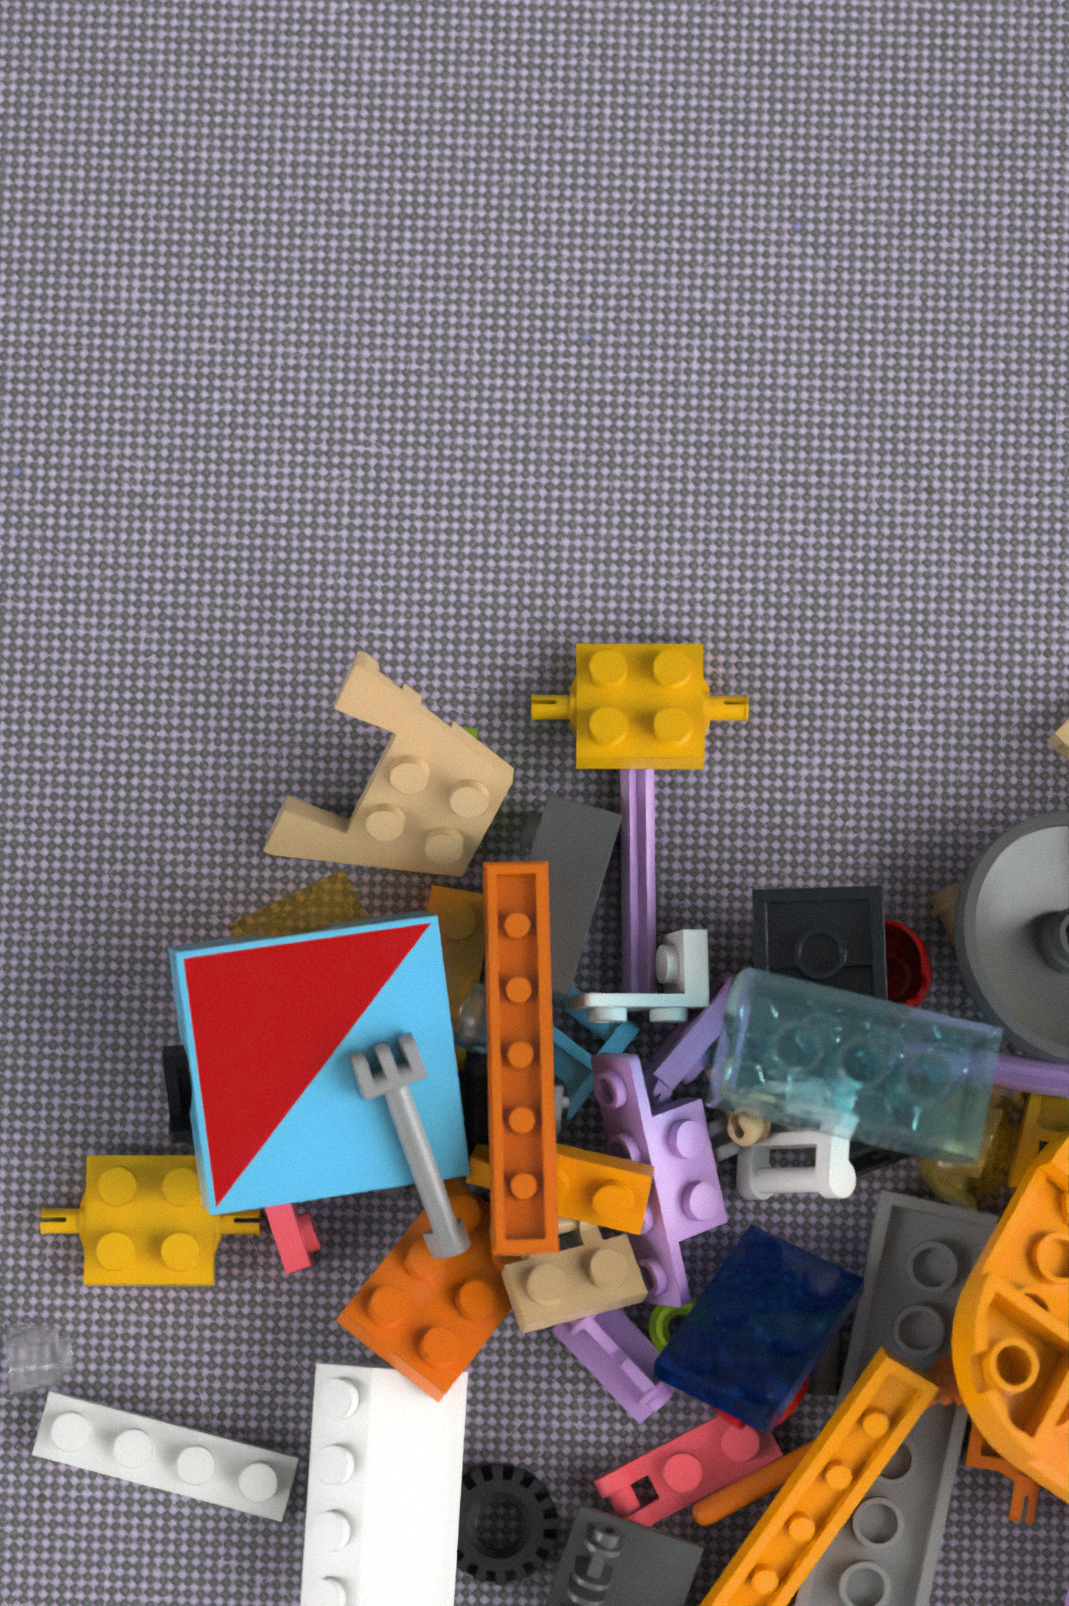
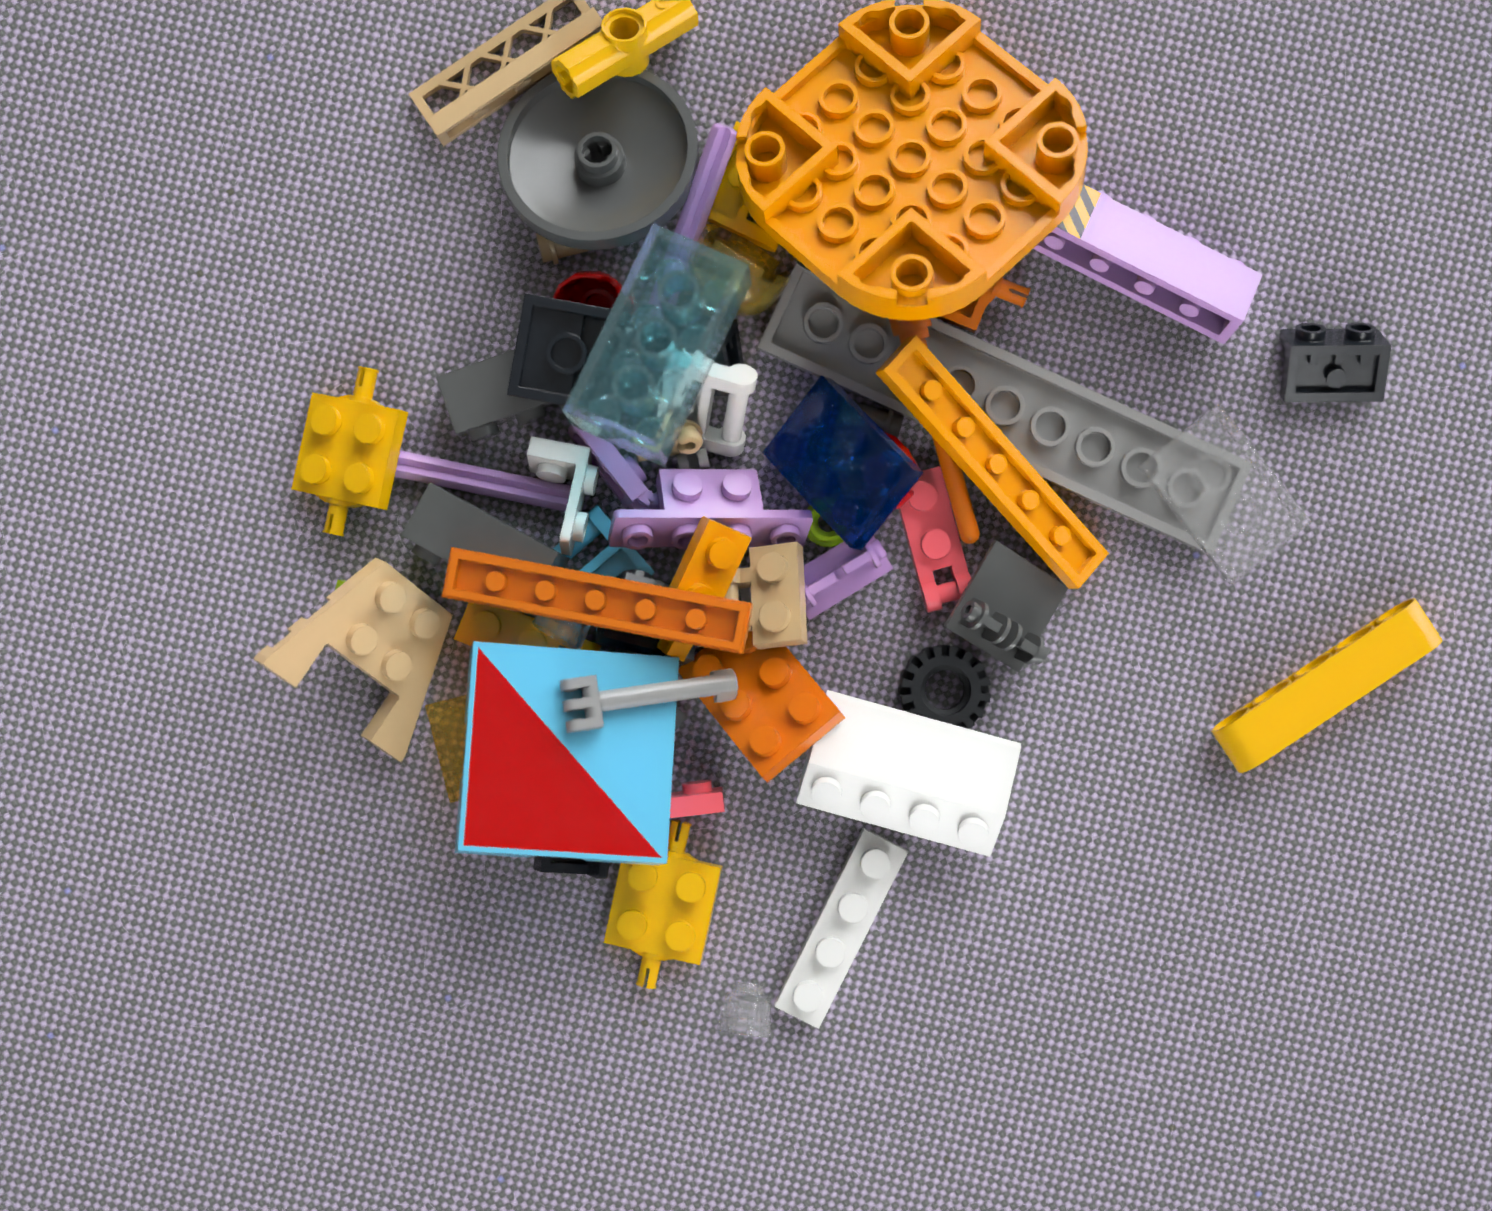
camera: 75 degrees left, 5 degrees up
(742, 855) = (479, 398): none -> dark grey brick

